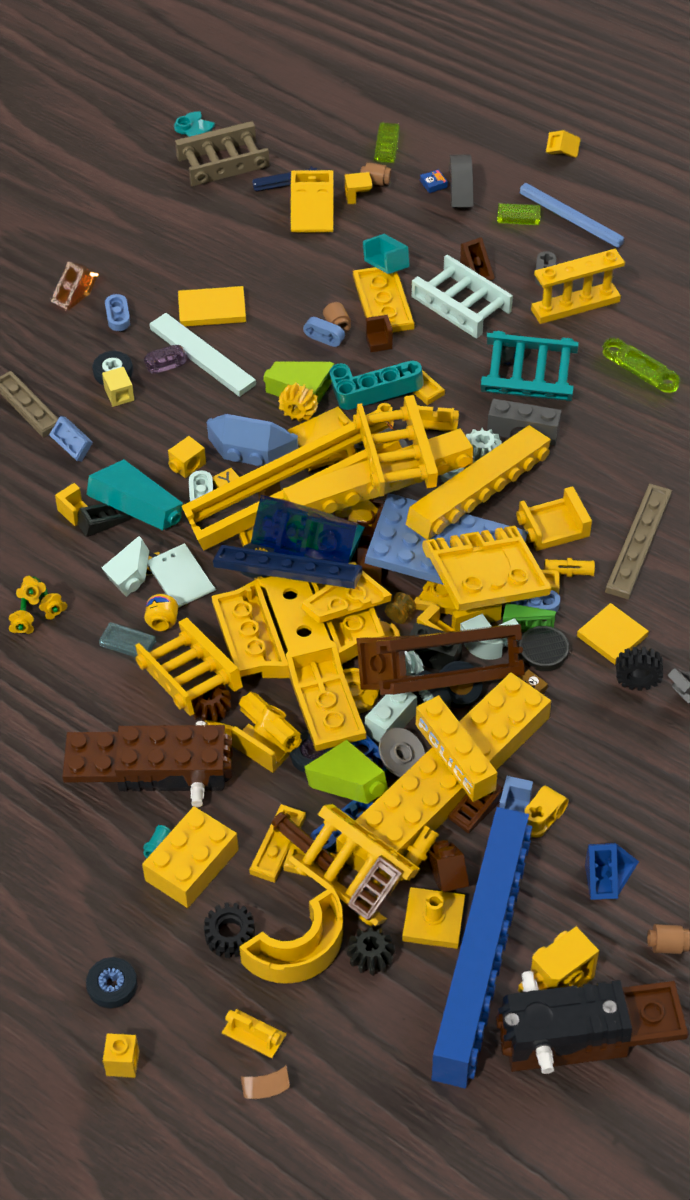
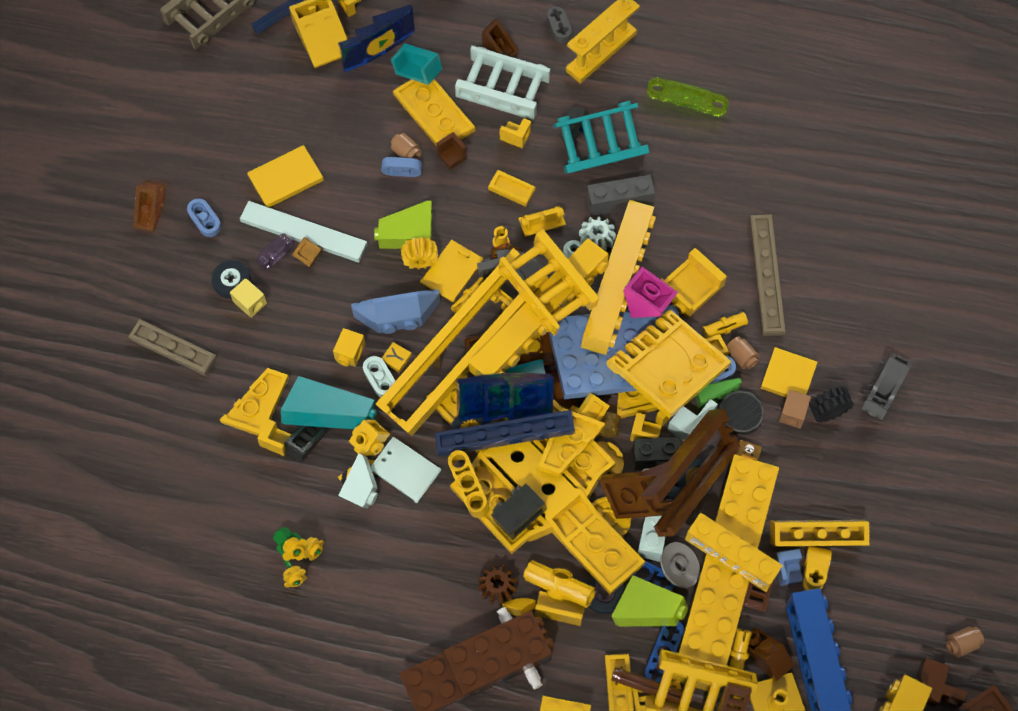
camera: 25 degrees left, 15 degrees up
(71, 438) = (234, 369): medium blue plate -> none
(74, 471) = (258, 403): none -> yellow wing
(124, 639) = (393, 553): clear light blue tile -> none
(159, 533) = (369, 438): none -> yellow brick
(161, 612) = (411, 515): yellow head -> none
(195, 370) = (307, 252): none -> pearl gold tile
(201, 648) = (466, 538): yellow fence -> none
(226, 596) = (464, 474): none -> yellow beam
(261, 635) = (518, 511): none -> pearl dark grey brick
(360, 221) = (378, 38): none -> clear blue slope
(374, 385) = (500, 185): teal beam -> none
(391, 581) = (592, 407): none -> yellow panel
(451, 342) = (515, 133): none -> yellow panel
(497, 502) = (647, 295): none -> dark pink slope
(563, 776) = (819, 532): none -> yellow brick
(573, 596) = (743, 353): none -> medium nougat brick
(599, 662) = (795, 409): none -> medium nougat panel
(607, 870) = (889, 603): blue slope -> none
(613, 961) = (934, 675): none -> reddish brown brick

